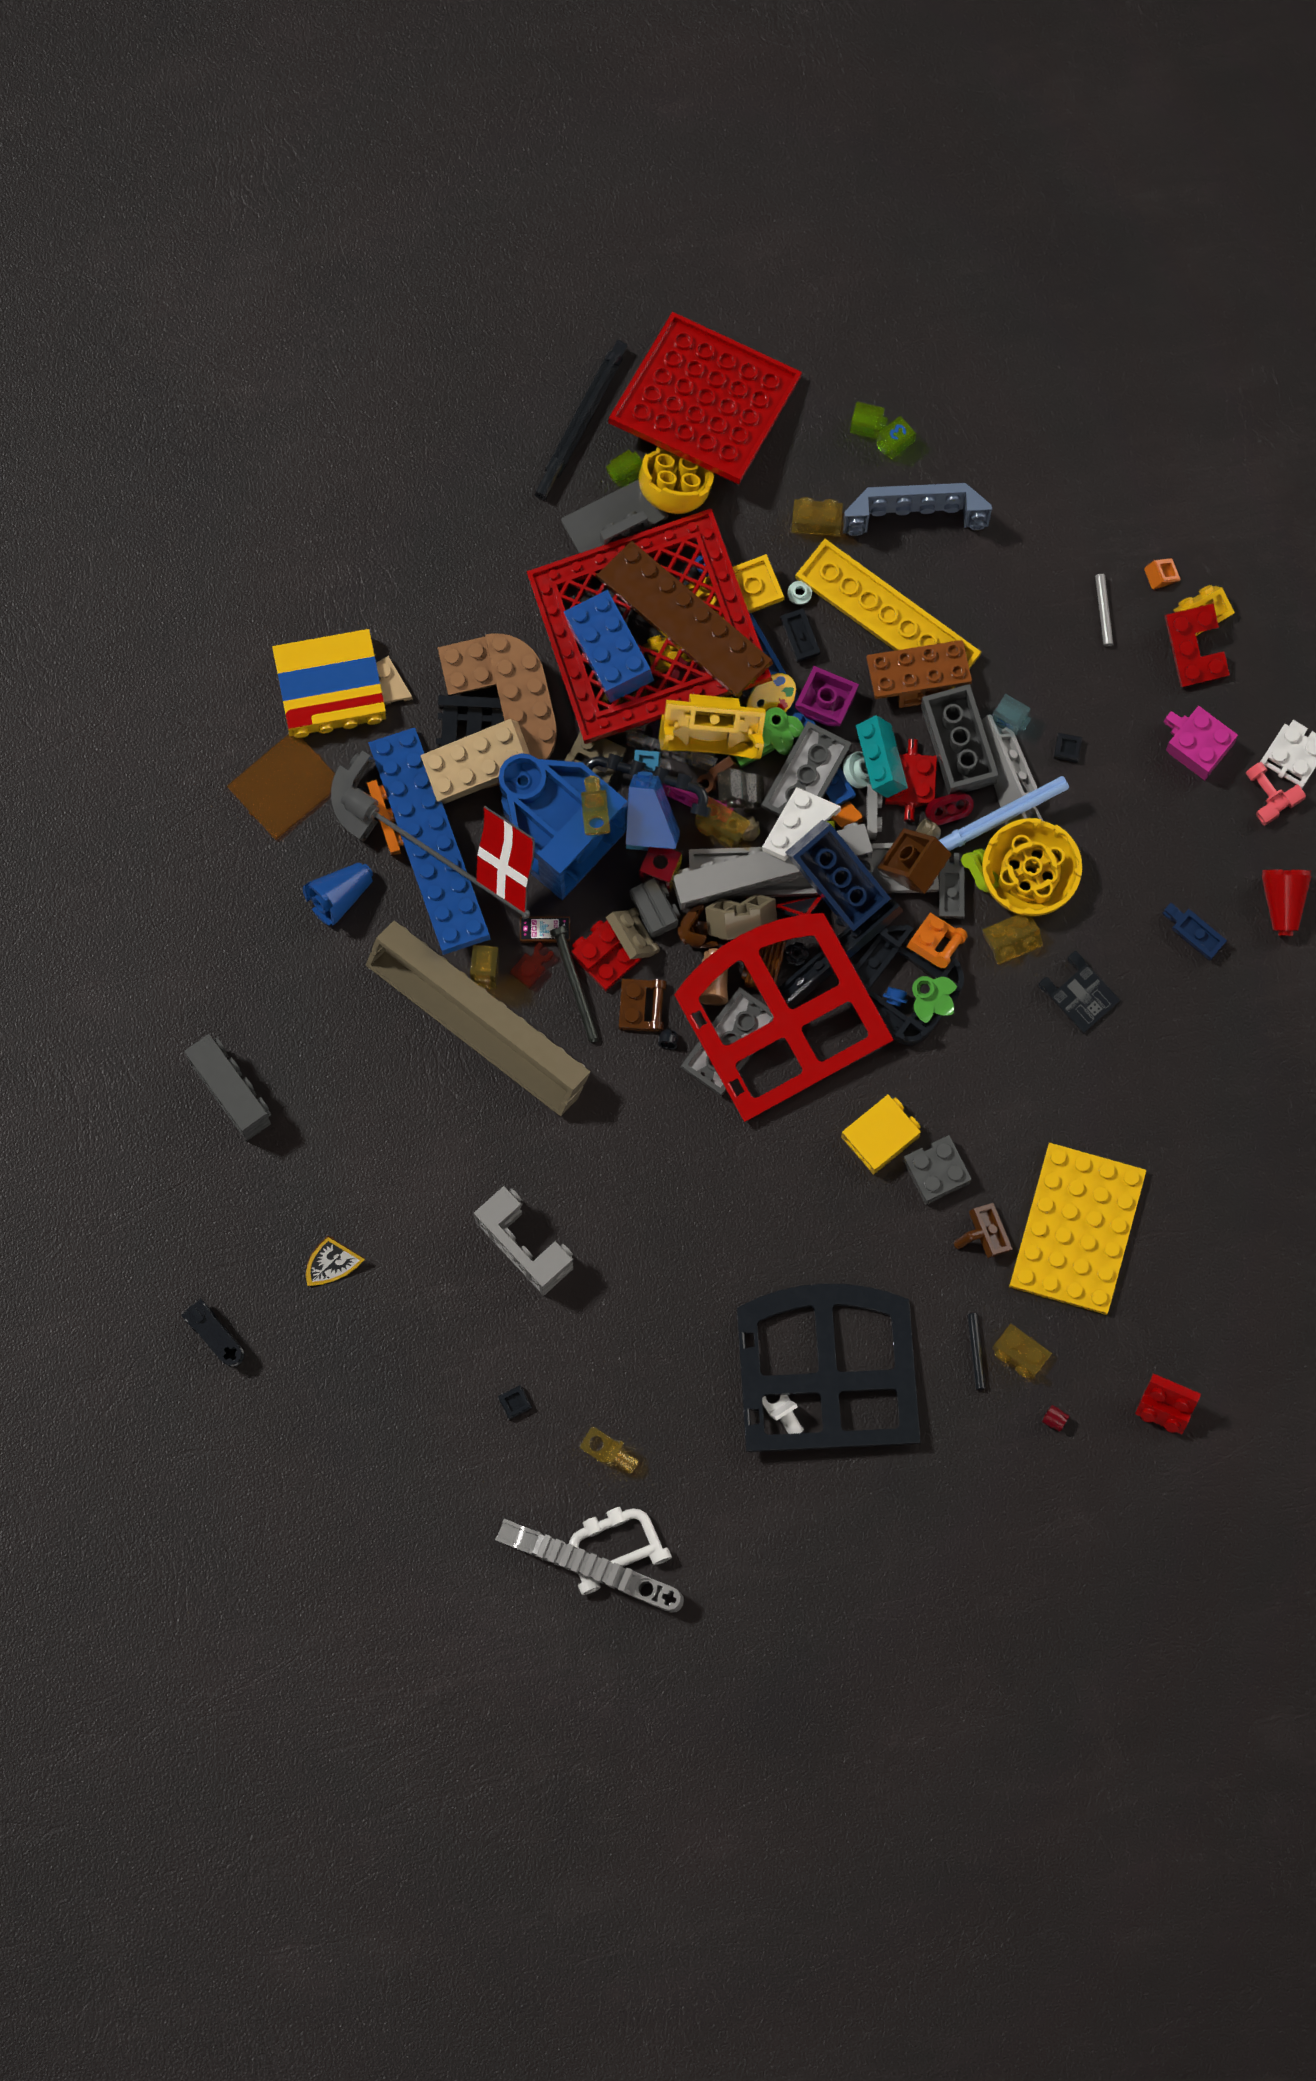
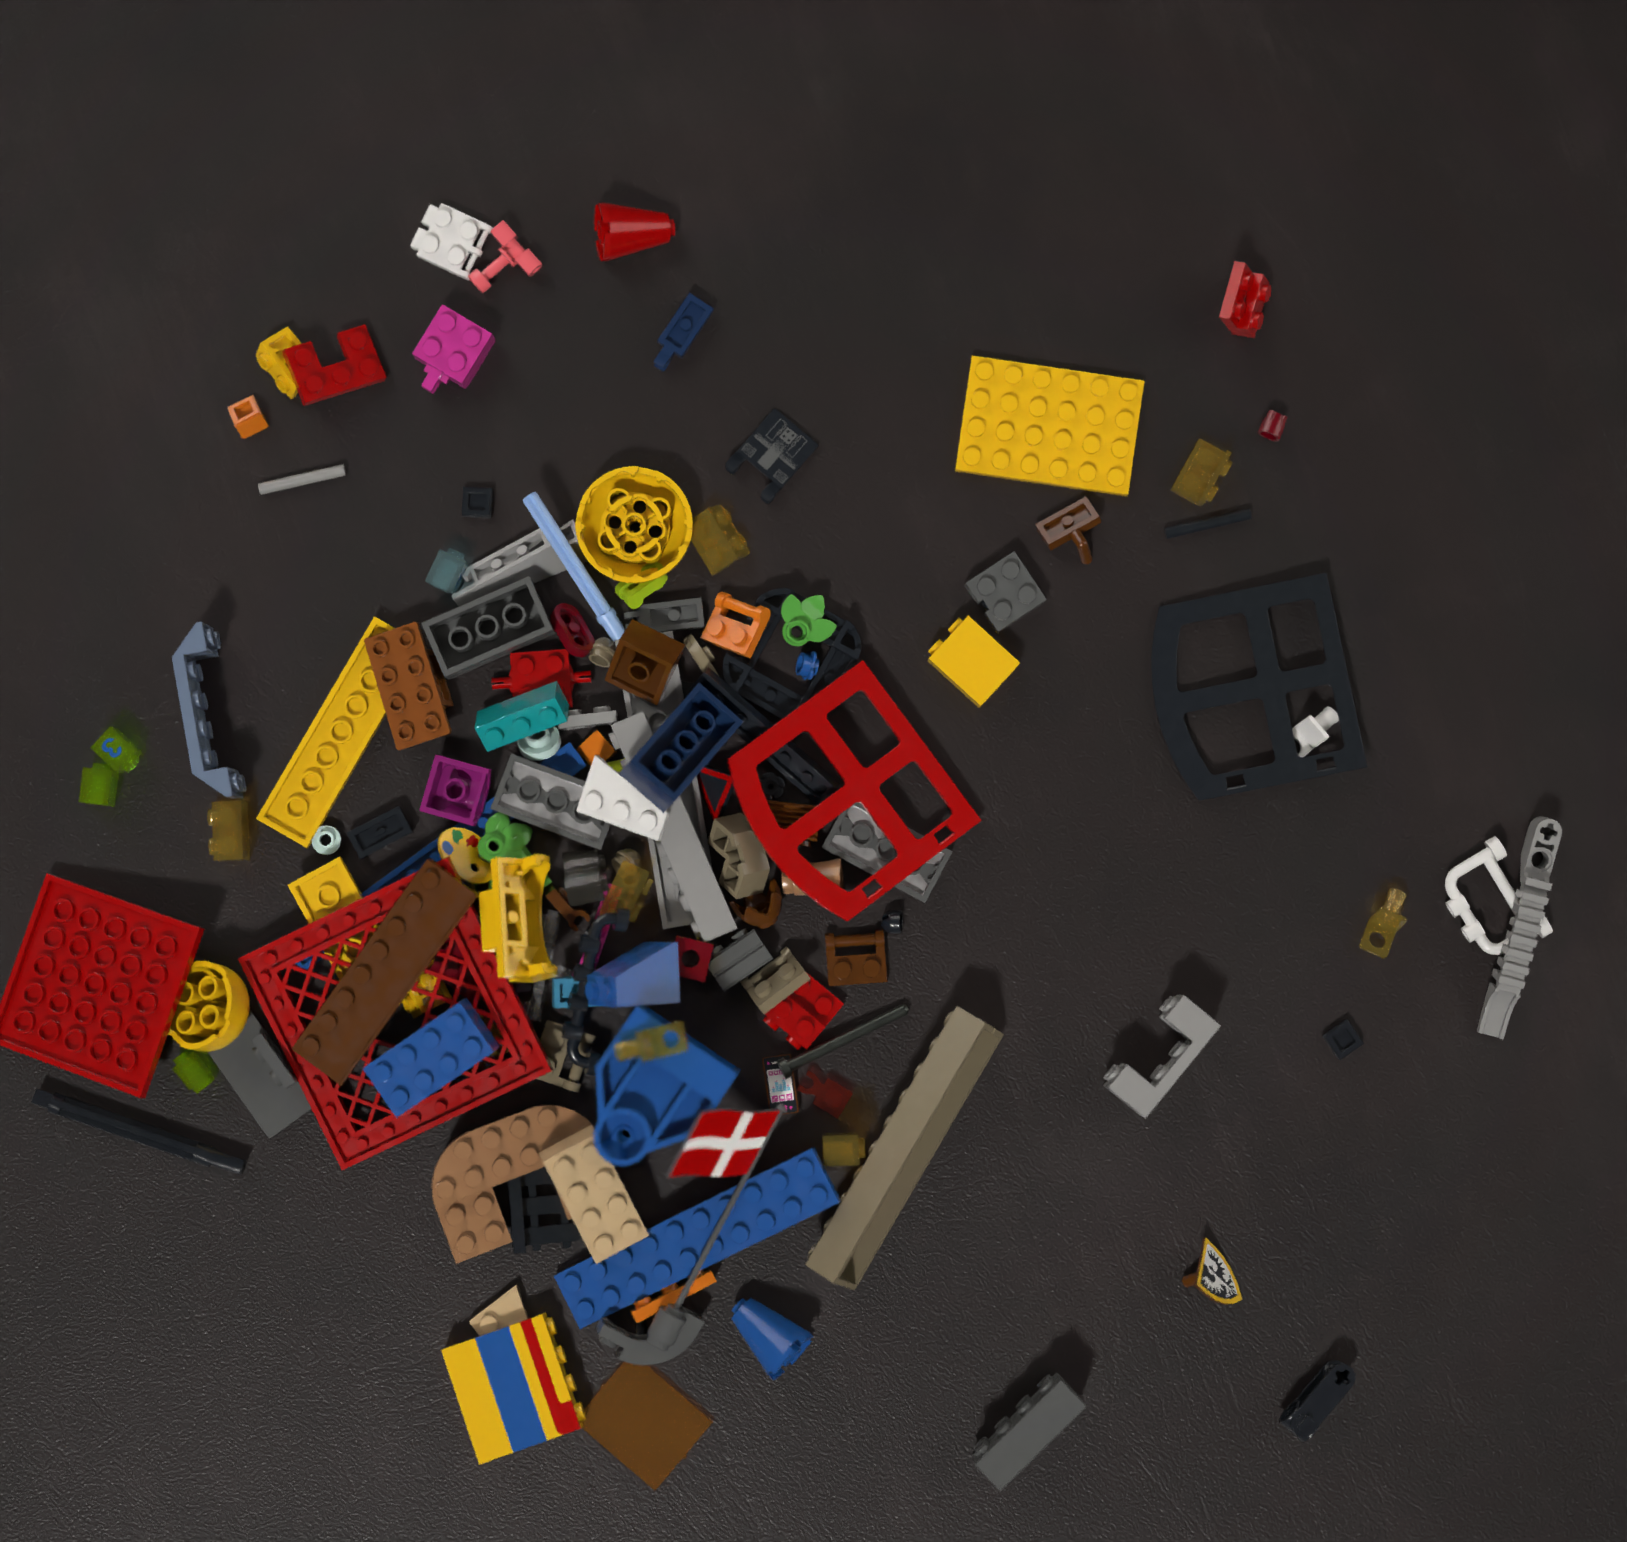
camera: 95 degrees left, 10 degrees up
(914, 911) = (702, 656): none -> dark tan plate

